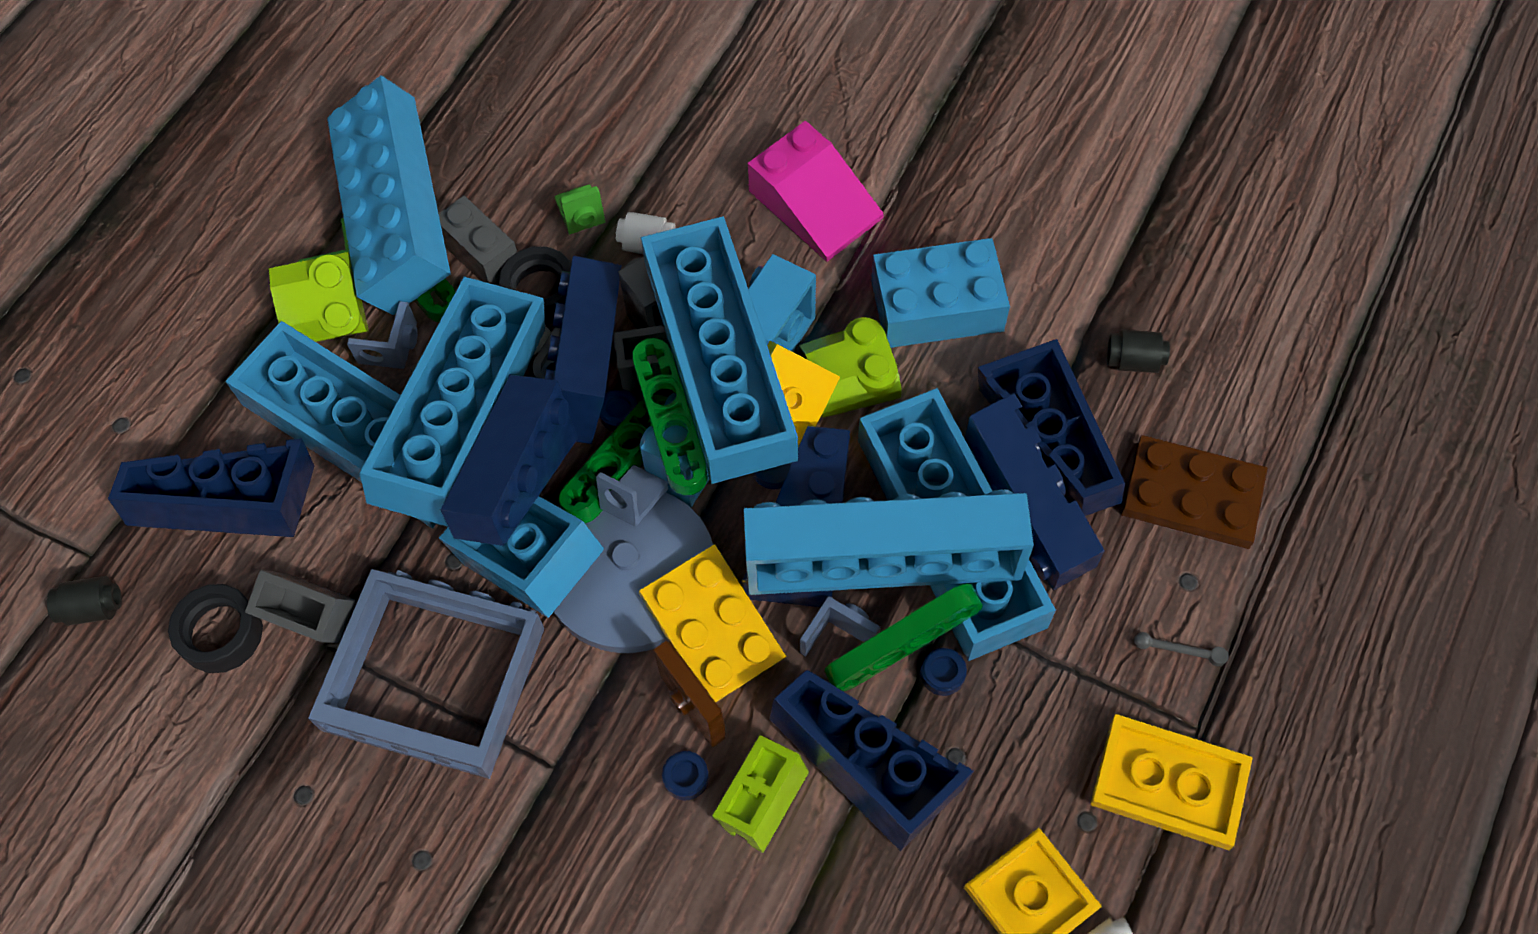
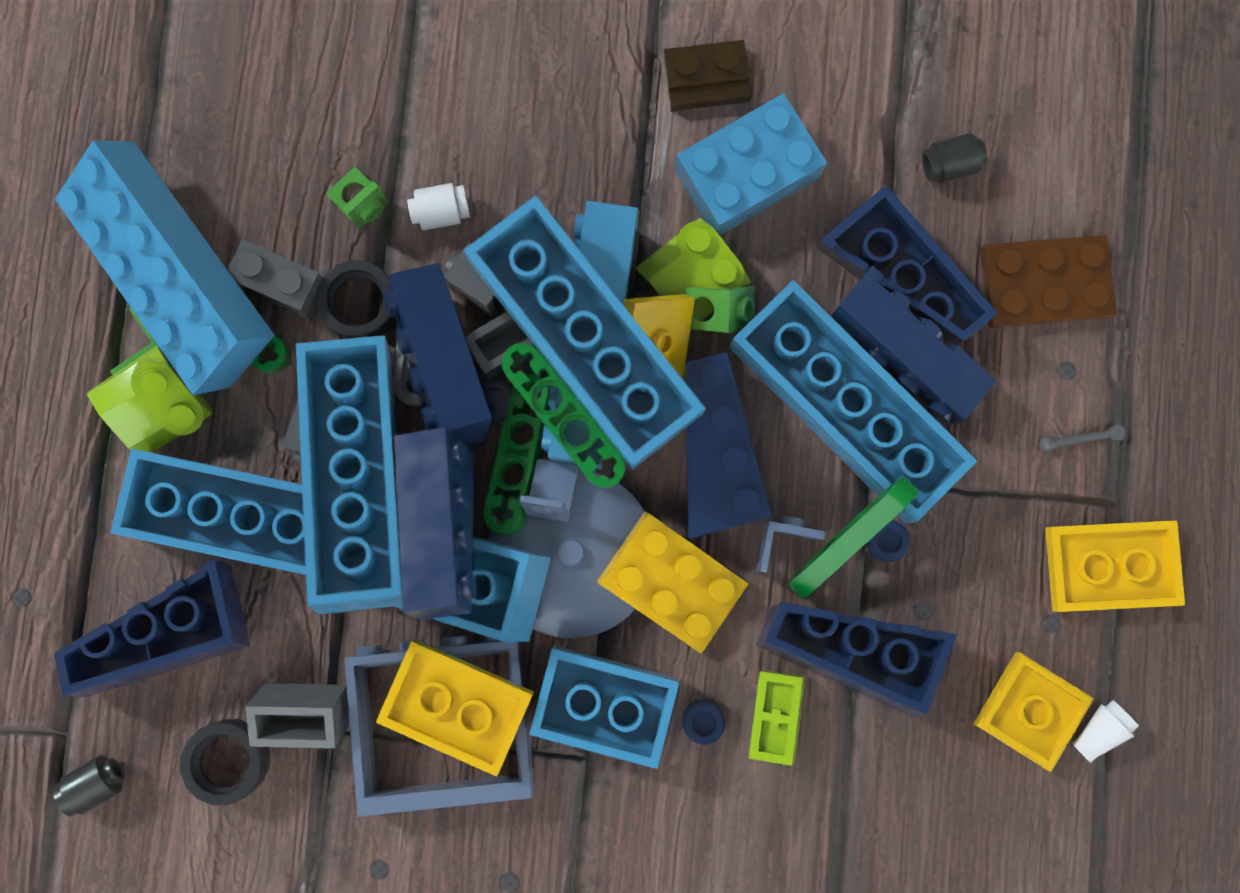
camera: 25 degrees left, 20 degrees up
(395, 352) = (253, 411): sand blue bracket -> none
(450, 647) = (455, 707): none -> yellow plate
(593, 710) = (604, 706): none -> dark azure brick
(689, 694) = (685, 663): reddish brown plate -> none
(813, 191) = (583, 95): dark pink slope -> none
(868, 396) = (732, 308): none -> bright green bracket
(887, 542) = (827, 465): dark azure brick -> none
(932, 213) = (707, 75): none -> dark brown plate

